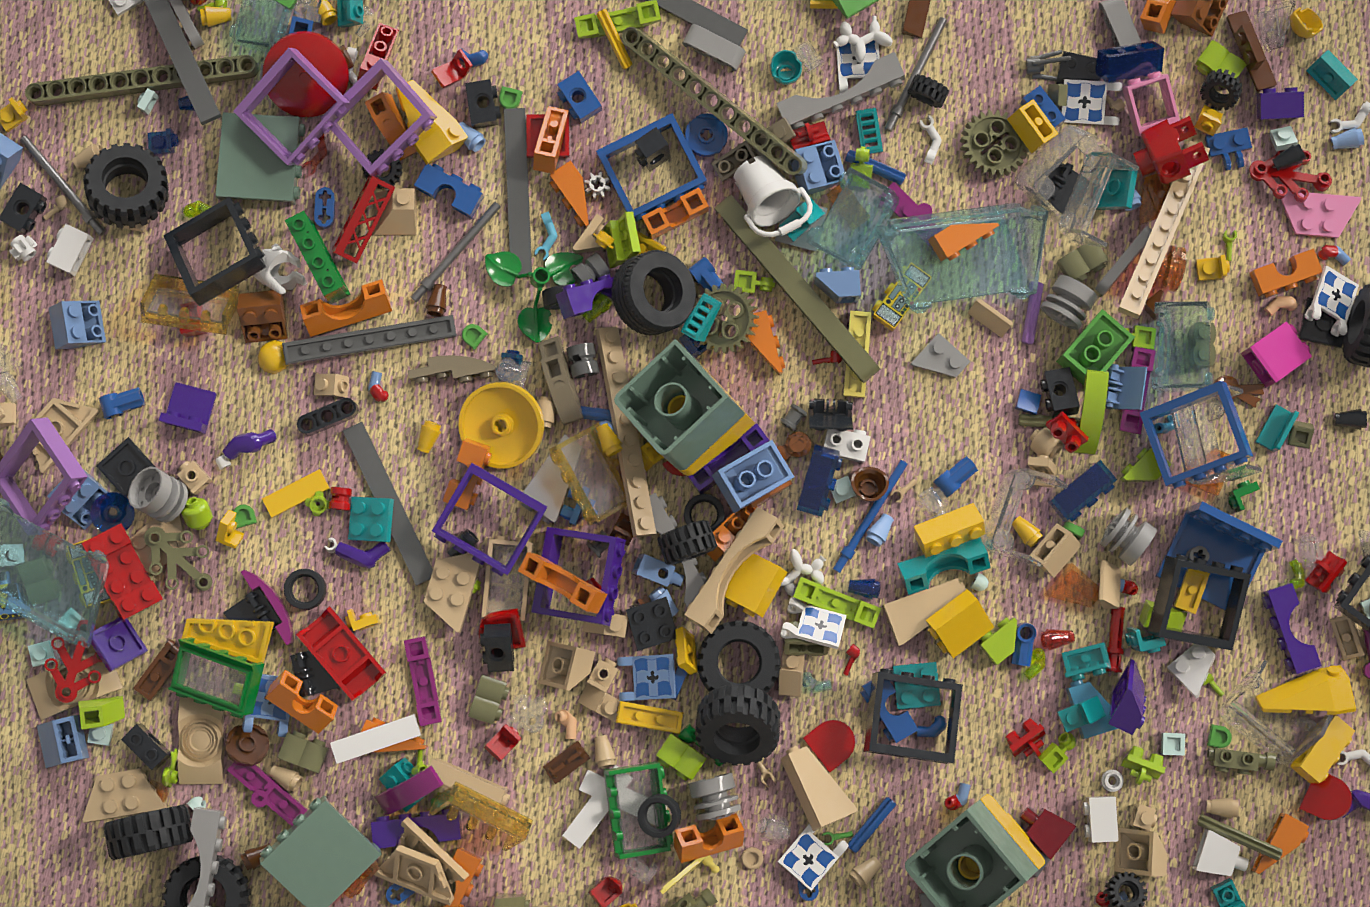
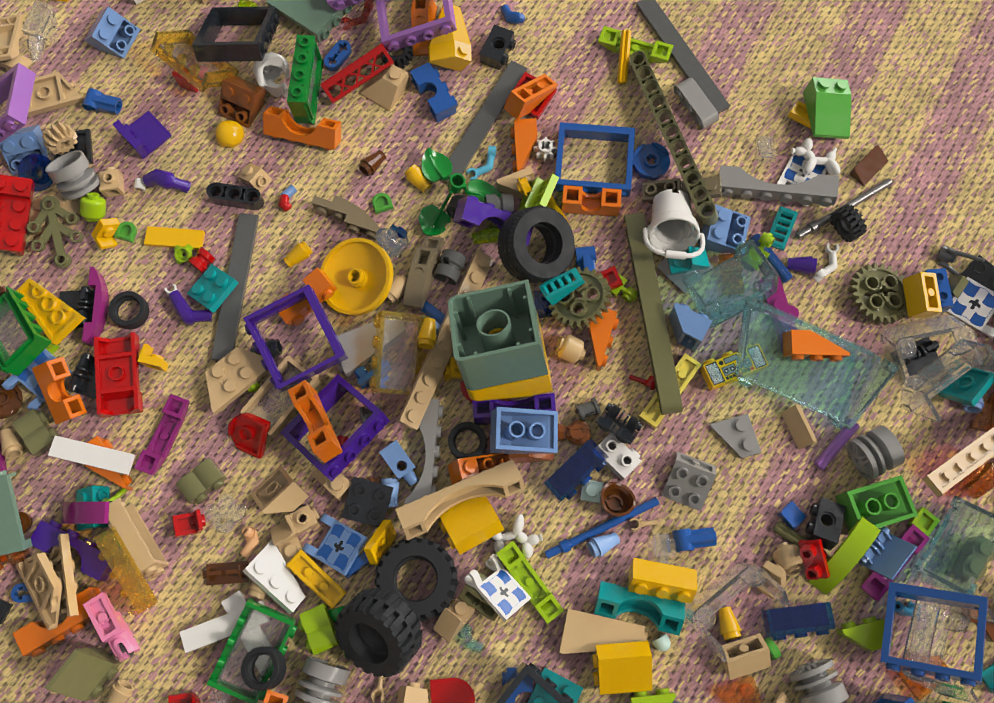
camera: 35 degrees right, 10 degrees down
(115, 466) = (59, 138): none -> tan gear
(369, 340) = (303, 160): dark grey tile -> none
(428, 282) = (373, 147): flat silver bar -> none
(452, 71) = (491, 16): red bracket -> none
(475, 139) = (475, 68): light blue cone -> none
(491, 290) = (415, 177): none -> yellow cone
(498, 647) = (235, 444): black brick -> none
(501, 867) = (111, 626): none -> bright pink plate
(510, 98) = (521, 56): bright green tile -> none
(574, 86) = (571, 72): blue brick -> none
(613, 739) = (275, 578): none -> white wing
(623, 529) = (392, 413): reddish brown bracket -> none
(652, 149) = (602, 139): black brick -> none
(687, 542) = (435, 450): black tyre -> none
(742, 280) = (612, 277): none -> red plate
(744, 370) = (570, 349): none -> tan head
(782, 60) = (743, 140): teal hair -> none
(810, 135) = (733, 202): red hips -> none
(853, 652) = (518, 633): red hand -> none
(865, 587) = (563, 586): clear blue cone -> none
(909, 156) = (804, 265): none -> dark purple cone
(922, 426) = (689, 481): none -> light grey bracket
(1083, 261) = (906, 427): olive brick -> none
(1123, 262) = (940, 448): light grey beam -> none
(1150, 304) = (945, 499): reddish brown slope -> none

